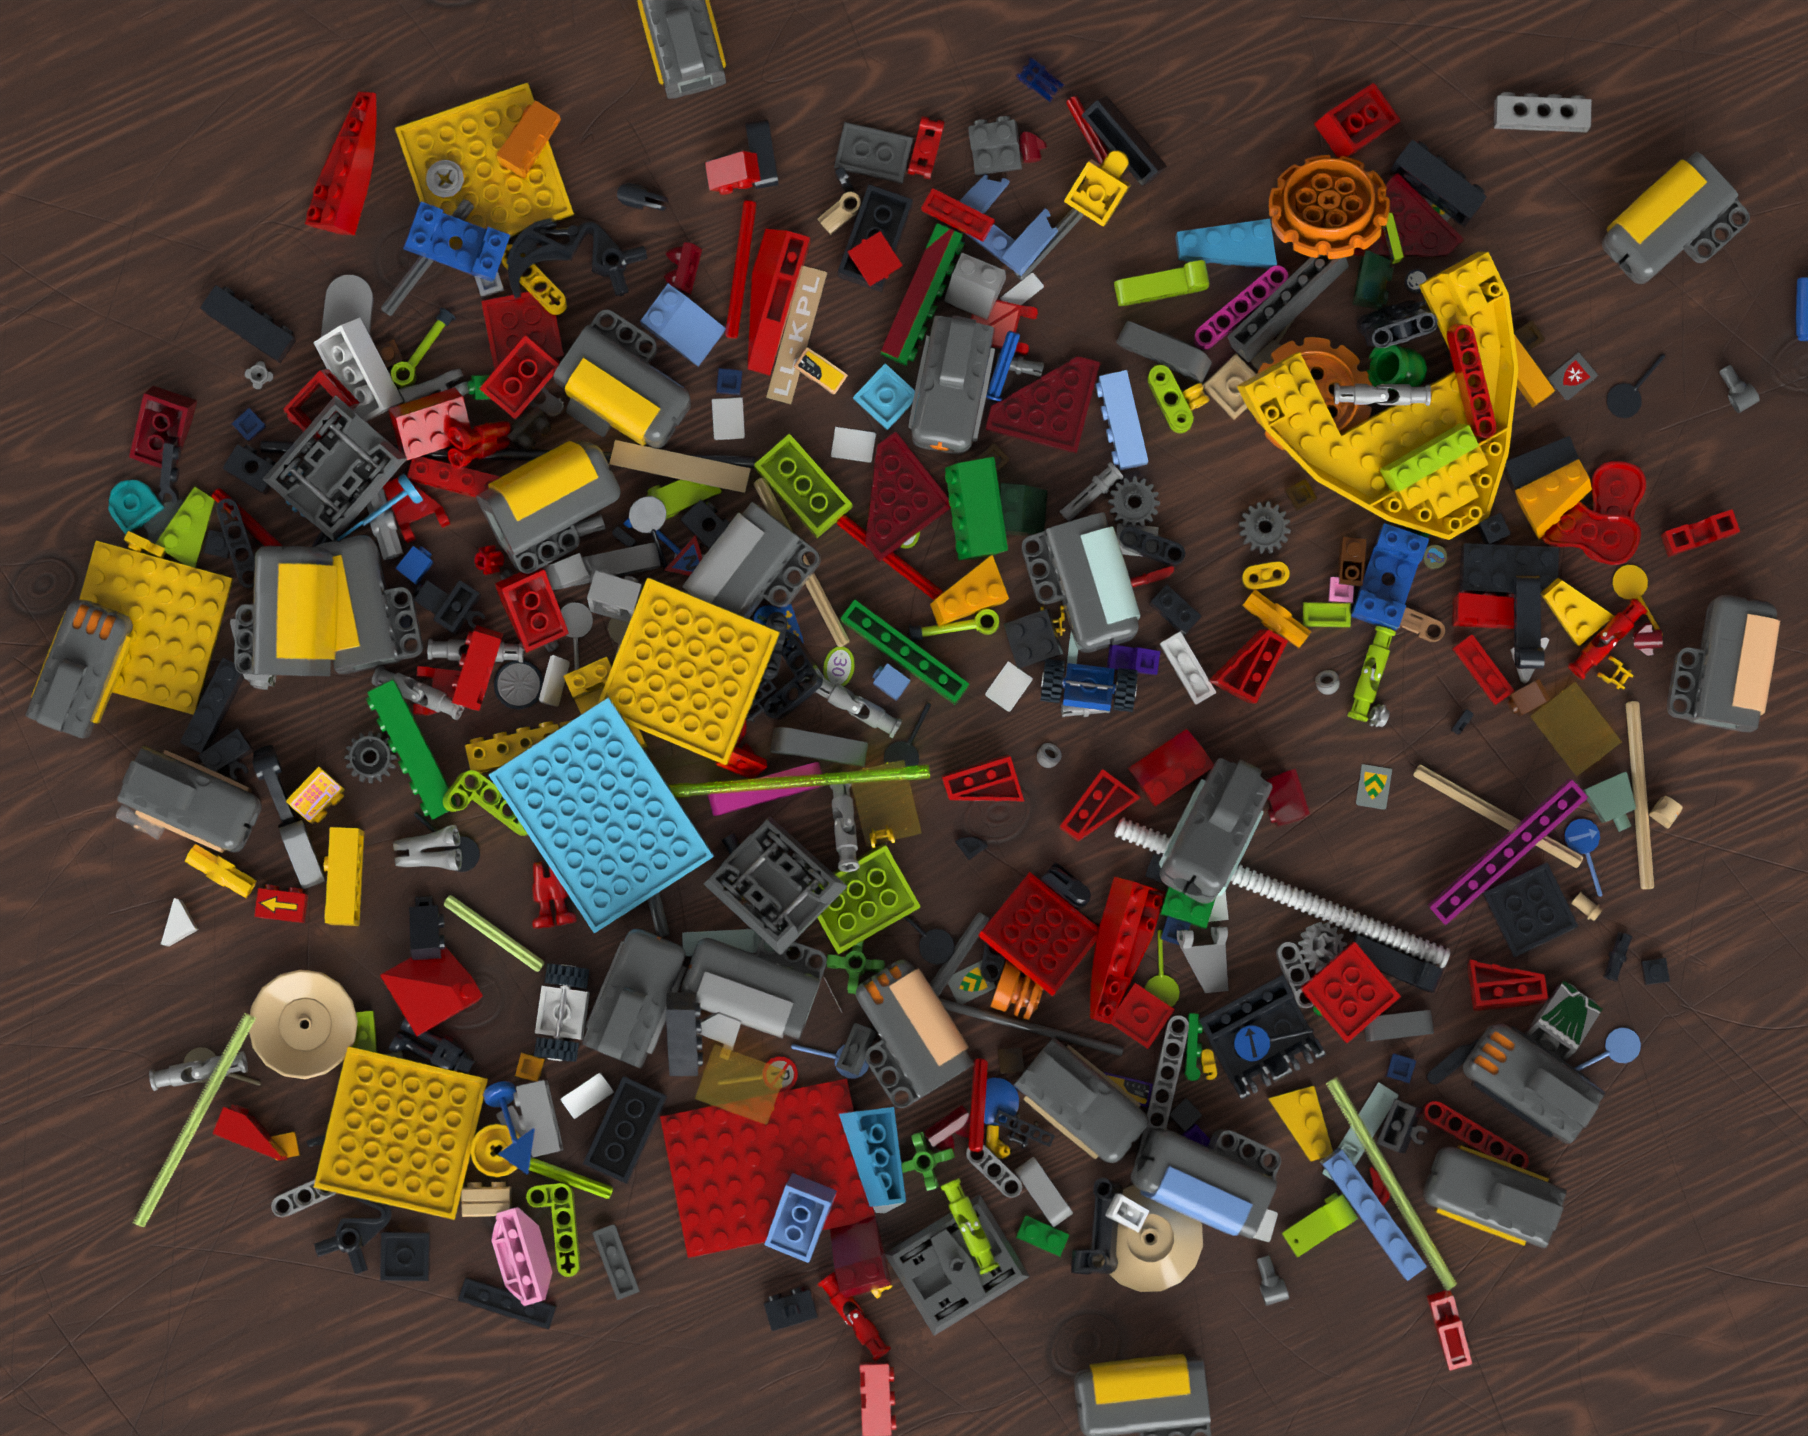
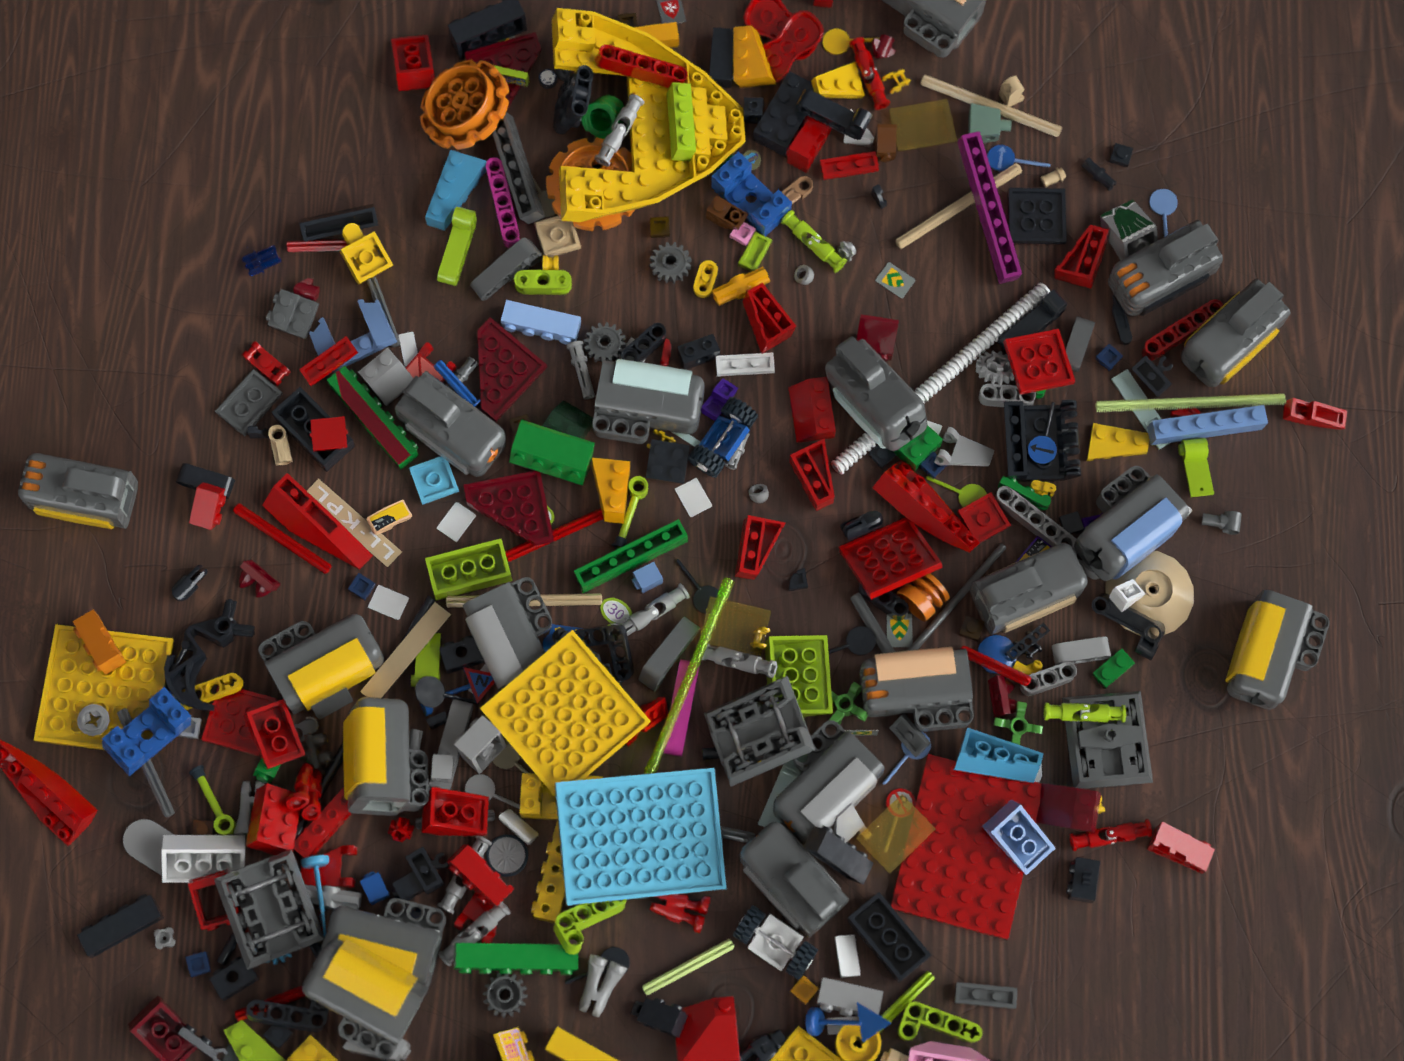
camera: 65 degrees left, 10 degrees down
(682, 325) = (301, 599): medium blue slope -> none
(1371, 281) = (532, 106): clear green slope -> none

